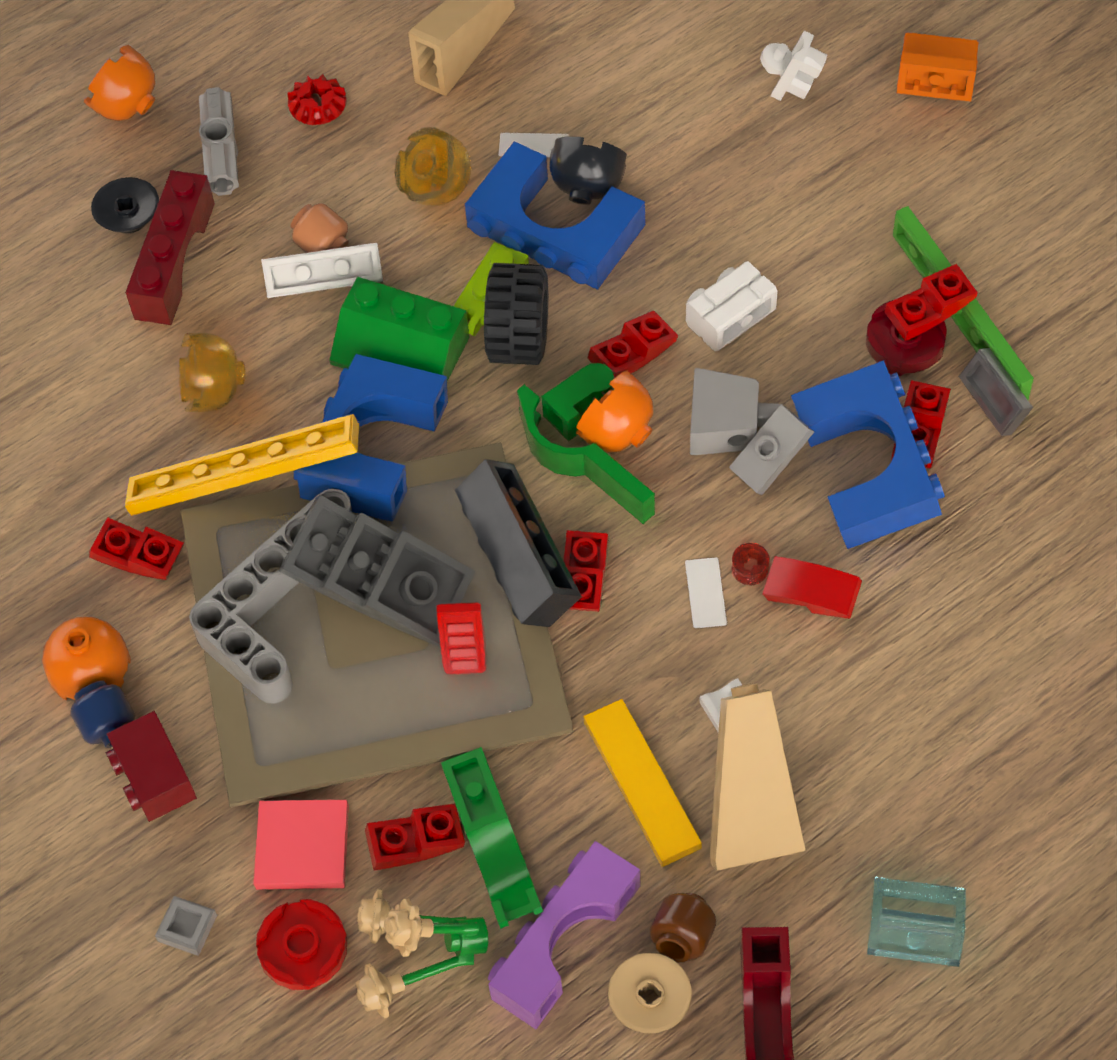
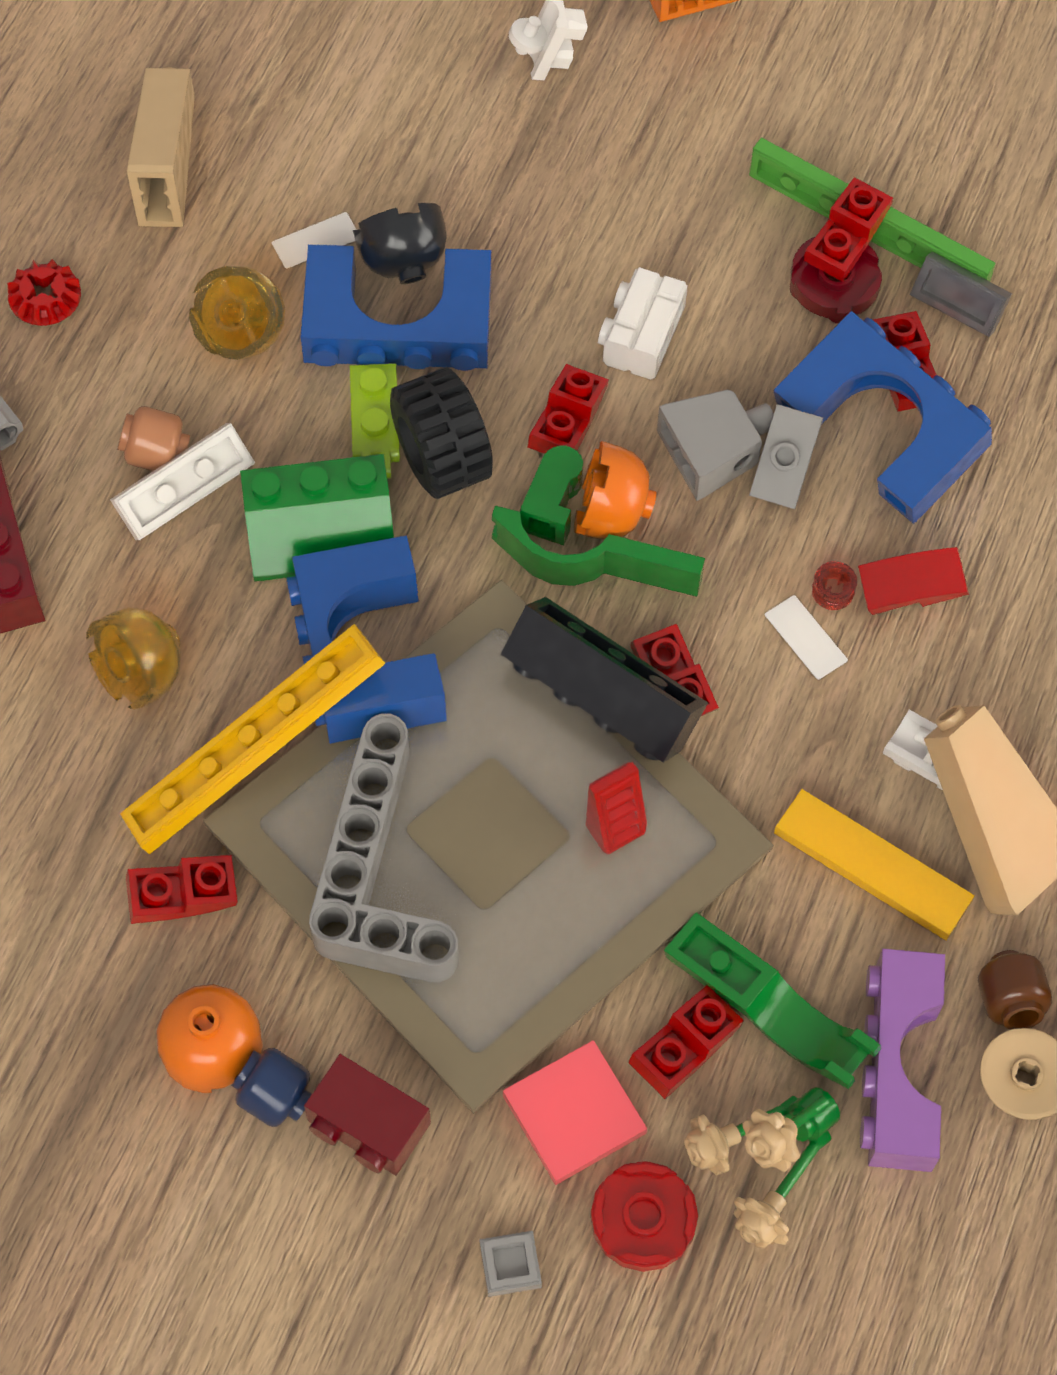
camera: 35 degrees left, 5 degrees up
(375, 569) = (476, 781): dark grey slope -> none

